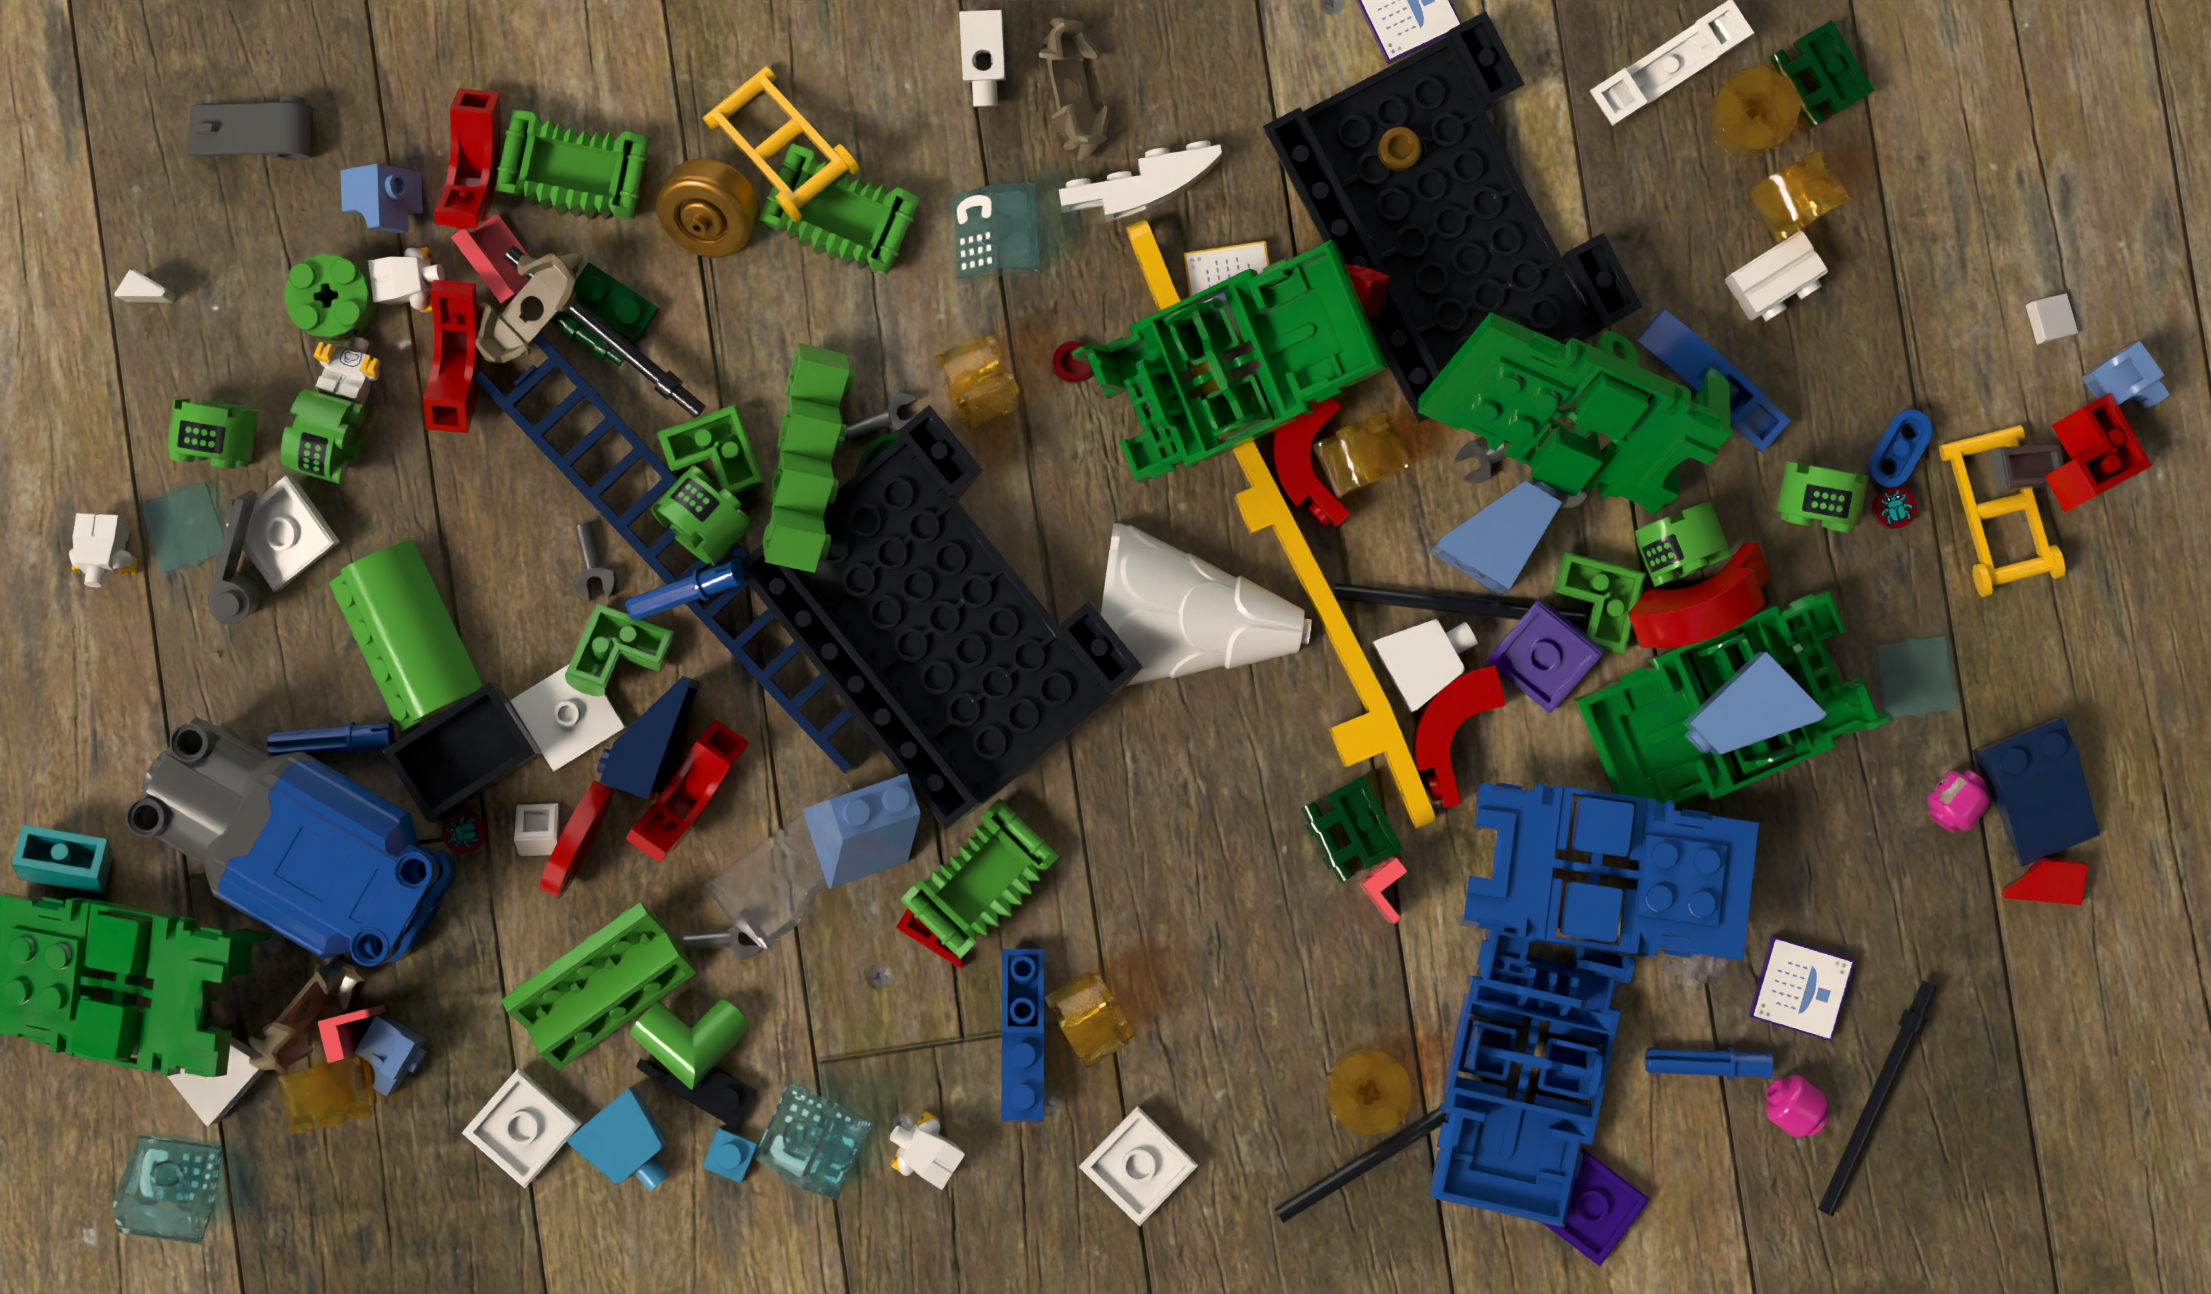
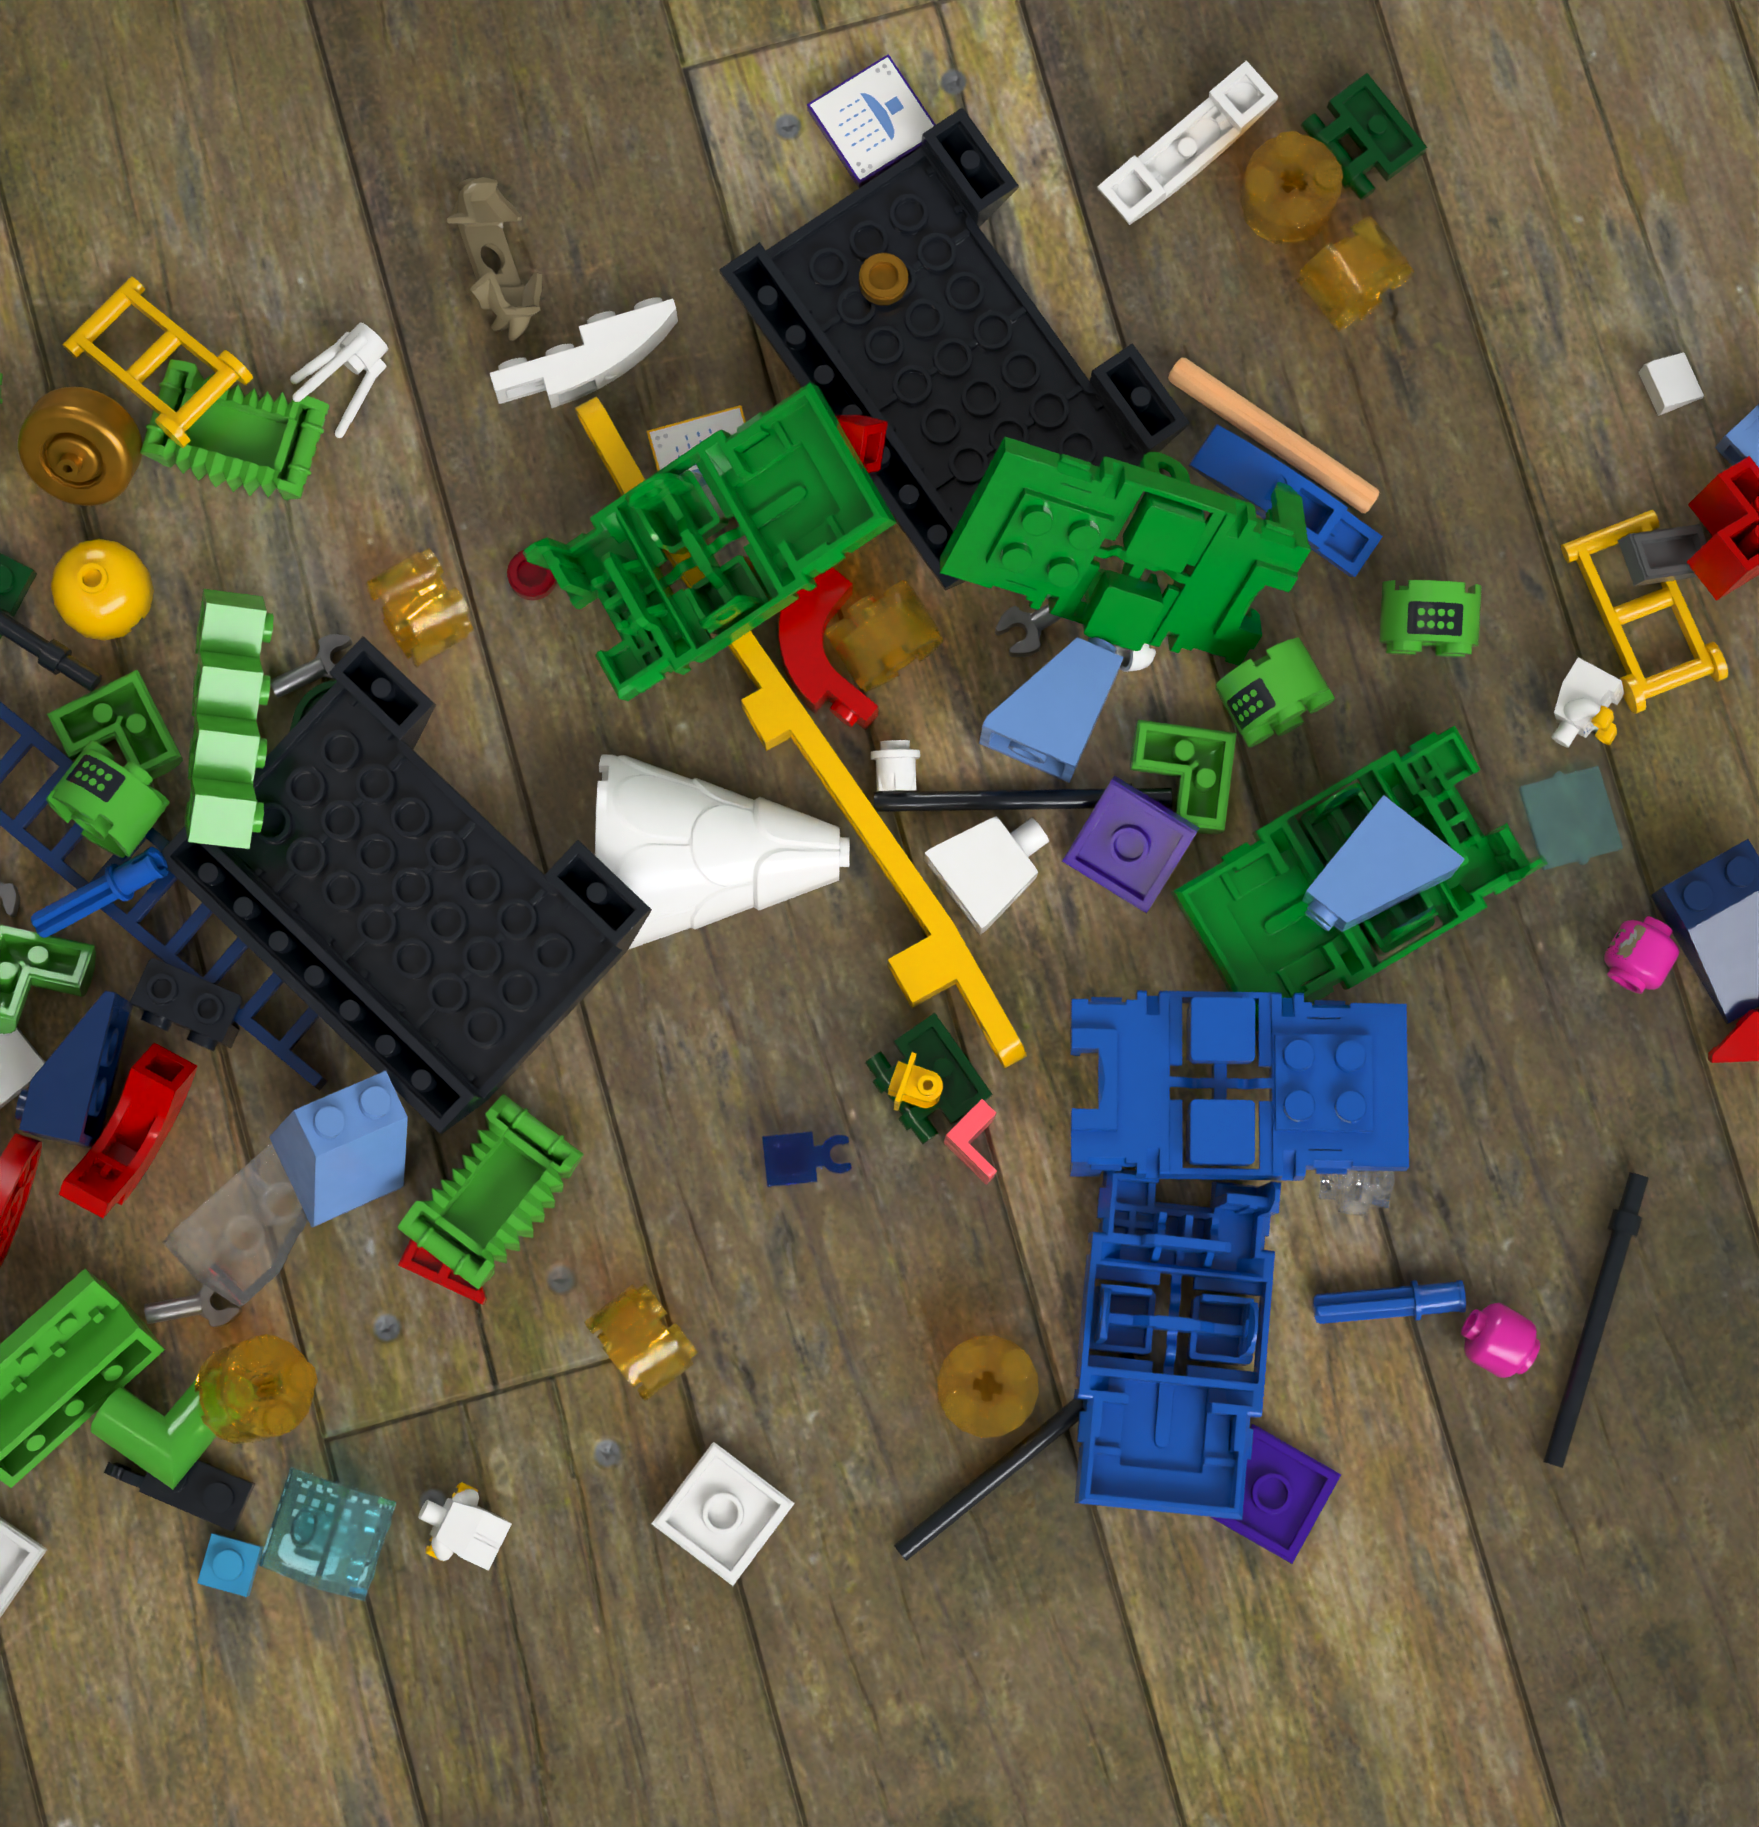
camera: 10 degrees left, 5 degrees down
(623, 1141) = (98, 1562): dark azure torso -> none
(712, 330) = (101, 589): none -> yellow cylinder
(747, 689) = (189, 1002): none -> black bracket
(768, 1017) = (255, 1389): none -> clear yellow brick
(947, 154) = (355, 350): none -> white plant
(981, 34) = (380, 208): white torso -> none
(997, 231) = (425, 432): clear light blue slope -> none
(1023, 1035) = (565, 1373): blue slope -> none
(1233, 882) = (794, 1158): none -> clear blue plate
(1341, 837) = (915, 1085): none -> yellow hinge
(1357, 564) = (895, 766): none -> white hose
(1440, 719) = (1032, 913): red arch -> none
(1705, 609) = (1310, 765): red arch -> none
(1710, 321) = (1273, 435): none -> light nougat axle
(1776, 276) = (1343, 373): white brick -> none
(1801, 988) = (1487, 1200): white tile -> none
(1894, 508) = (1518, 623): tile -> none
(1898, 450) = (1514, 556): blue plate -> none
(1940, 583) = (1585, 704): none -> white piece

